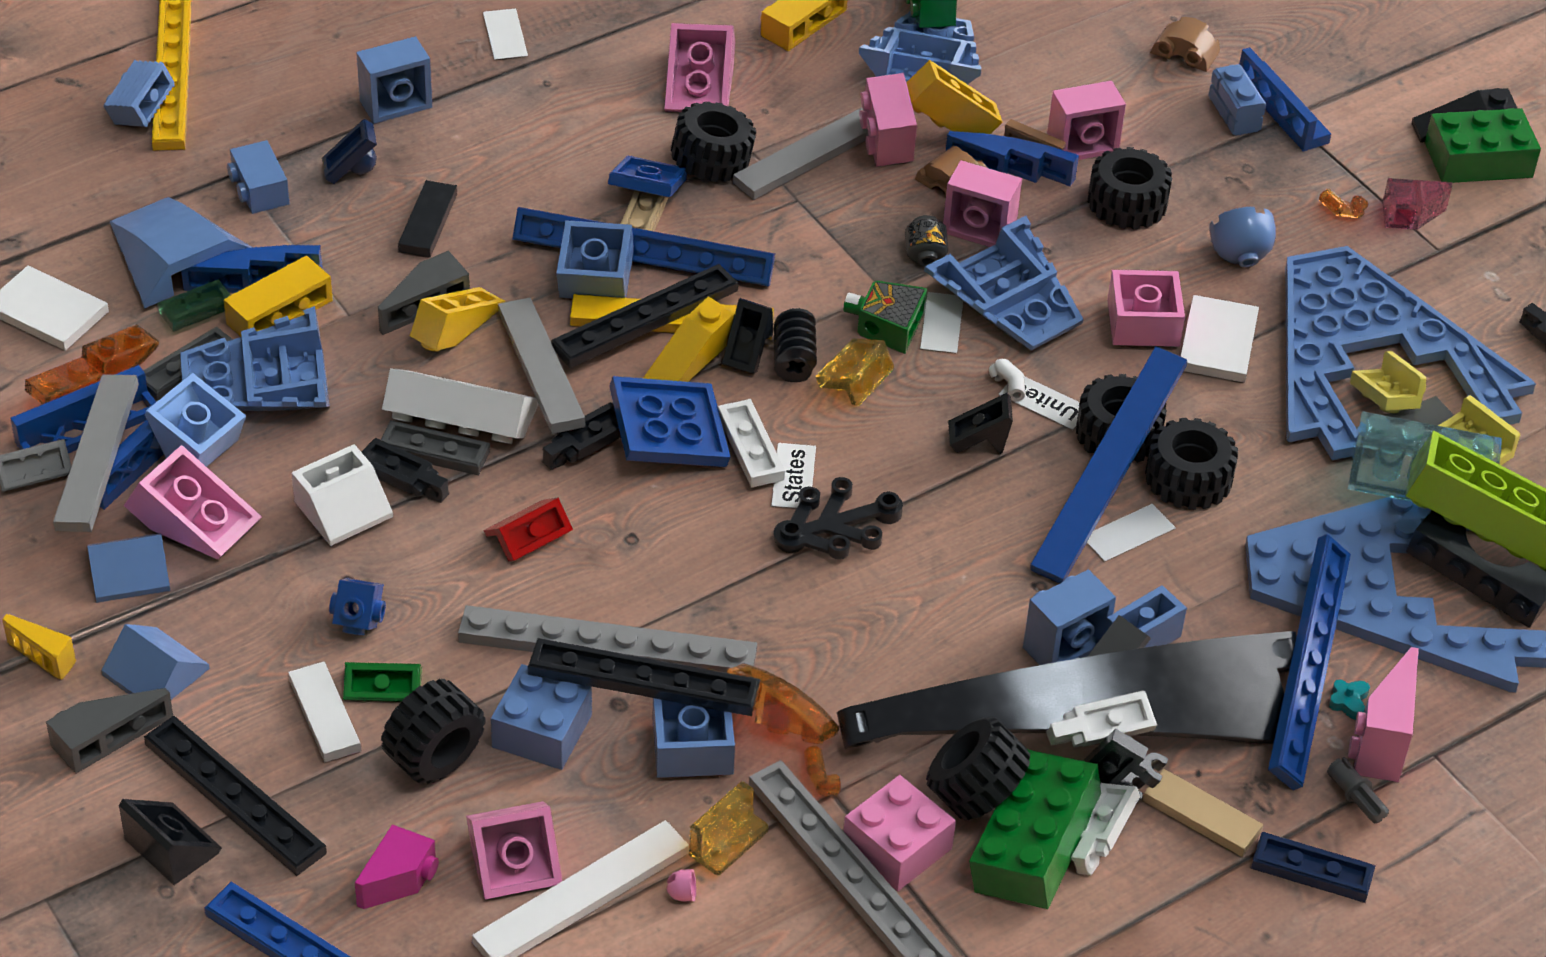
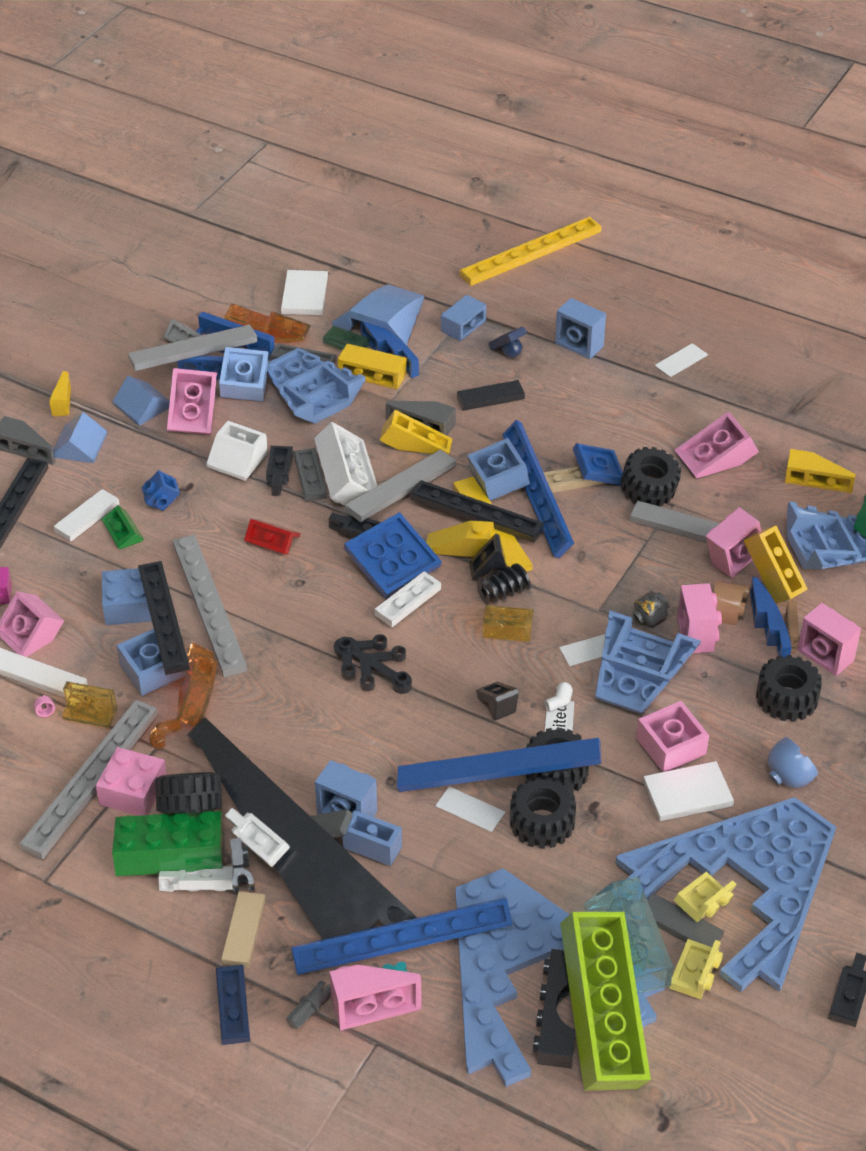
camera: 65 degrees right, 0 degrees up
(139, 93) = (485, 246): medium blue brick -> none
(433, 731) = (78, 553): black tyre -> none
(799, 471) = (405, 630): white sticker -> none
(888, 313) = (570, 617): torso -> none

